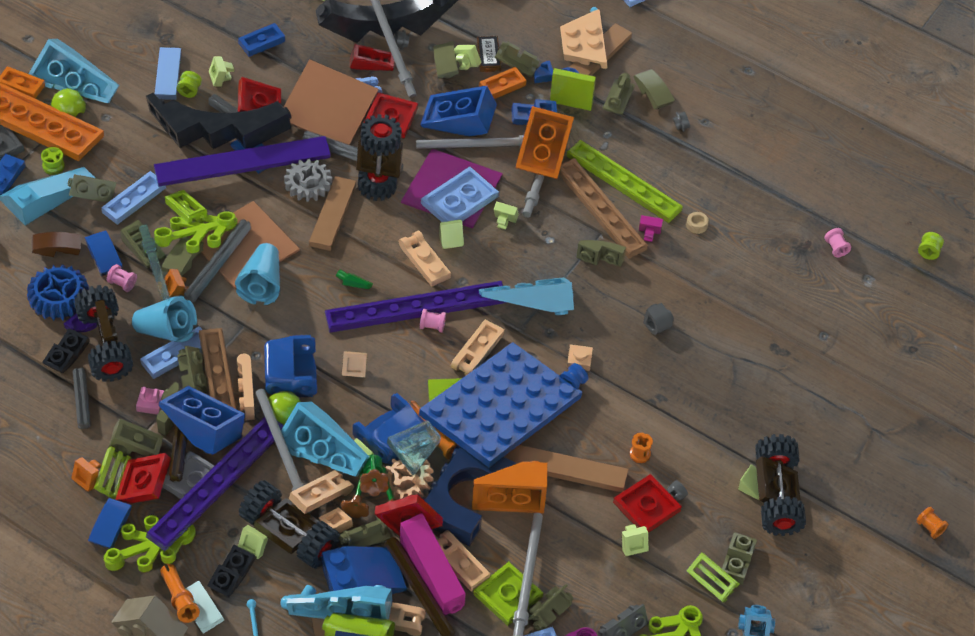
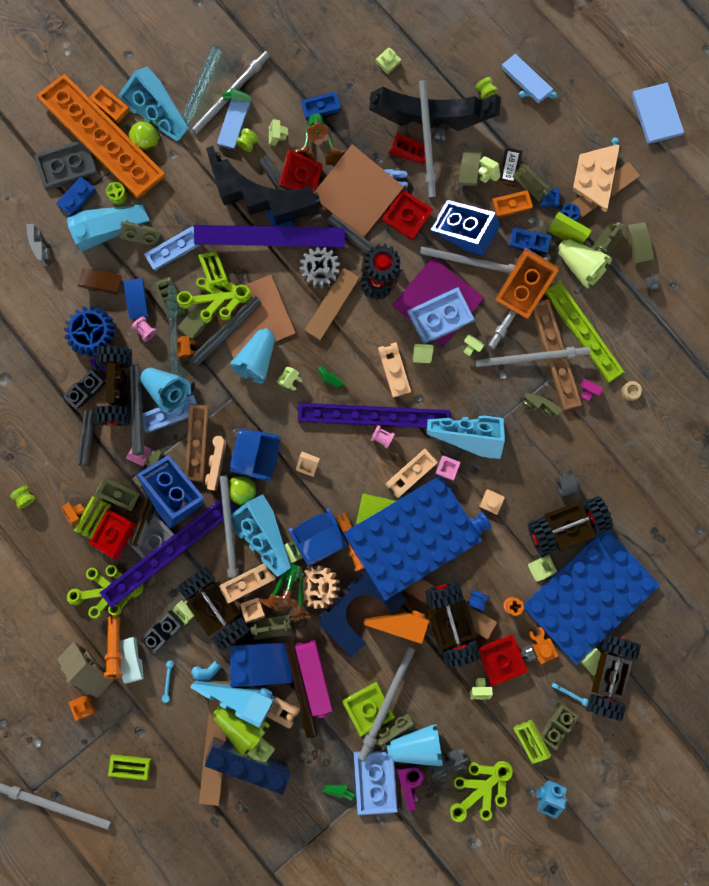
camera: 15 degrees right, 30 degrees up
(21, 470) = (22, 497): none -> lime wheel
(109, 523) = (80, 563): blue slope -> none
(121, 45) = (201, 84): none -> clear light blue axle
(137, 353) = (136, 410): none -> dark grey axle
(165, 47) = (236, 96): none -> green bar
(175, 22) = (254, 67): none -> light grey bar
(191, 360) = (177, 443): olive hinge -> none
(270, 54) = (317, 133): none -> dark orange plant
(305, 288) = (287, 378): none -> yellowish green tile
(400, 510) = (306, 632): red plate -> none
(415, 445) = (329, 568): clear light blue wing -> none
(463, 563) = (338, 671): light nougat plate -> none
(517, 331) = (447, 468): none -> bright pink tile
(576, 473) = (452, 624): none -> plate
(581, 606) = (417, 747): none -> medium azure cone
(598, 450) = (478, 600): none -> blue wheel
(601, 114) = (584, 261): none -> yellowish green cone
(613, 198) = (569, 352): none -> light grey bar
(660, 408) = (542, 568): none -> yellowish green slope
(675, 353) = (570, 525): none -> plate
(694, 483) = (543, 648): none -> orange plate
(721, 519) = (584, 701): none -> medium azure hinge
(723, 421) = (590, 596): none -> blue plate

